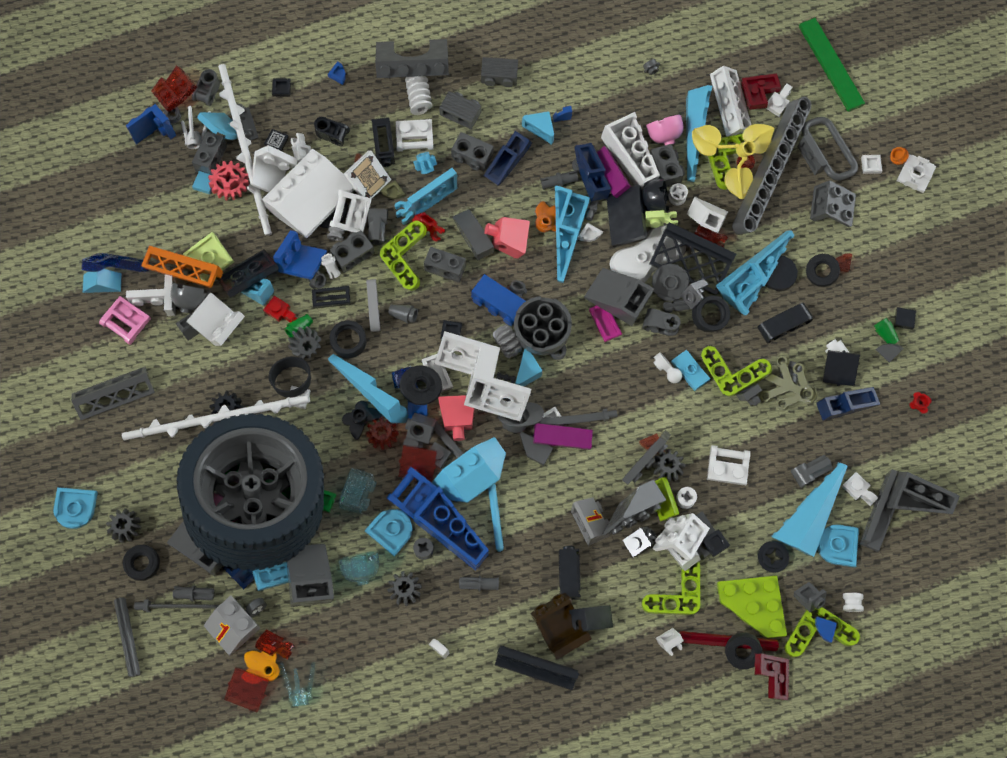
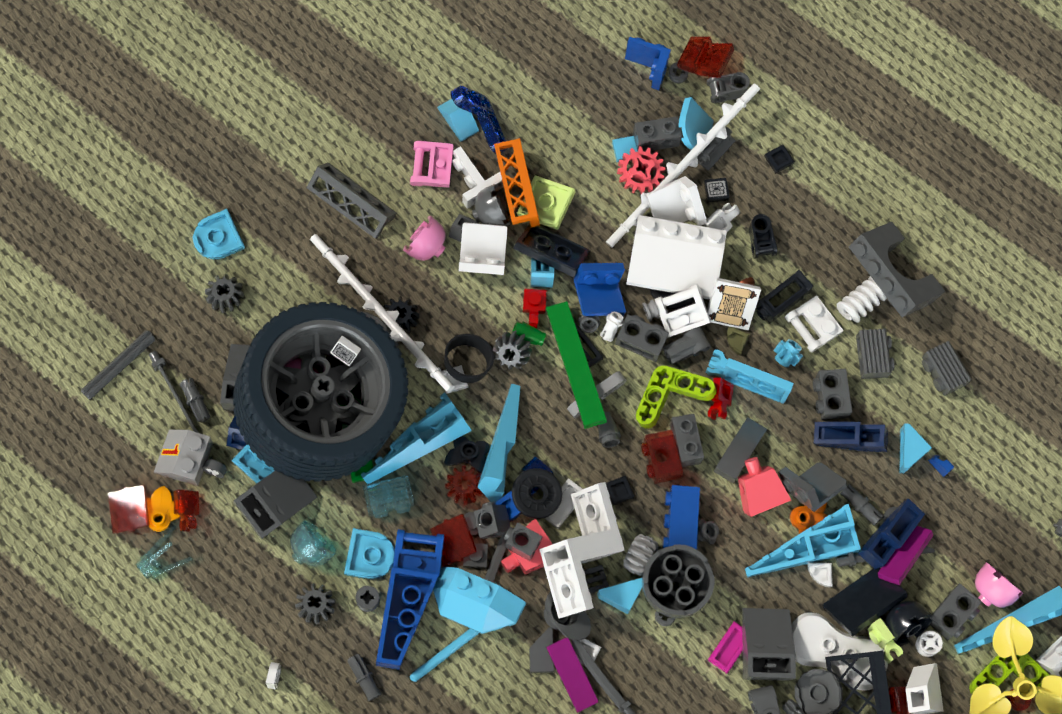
camera: 55 degrees right, 0 degrees up
(149, 571) = (204, 344): black tyre -> none
(181, 355) = (427, 240): none -> bright pink cylinder
(192, 138) = (665, 108): white plant -> none
(234, 453) = (345, 350): none -> tile
(328, 433) = (436, 429): none -> medium azure wedge
(337, 73) = (832, 205): blue tile -> none
(343, 305) = (576, 365): none -> green tile
(344, 325) = (544, 374): black tyre -> none
(438, 280) = (662, 443): none -> clear red brick
(452, 405) = (528, 550): none -> dark grey brick
(528, 200) = (813, 486): none -> dark grey bracket
(630, 149) = (946, 562): white wedge -> none

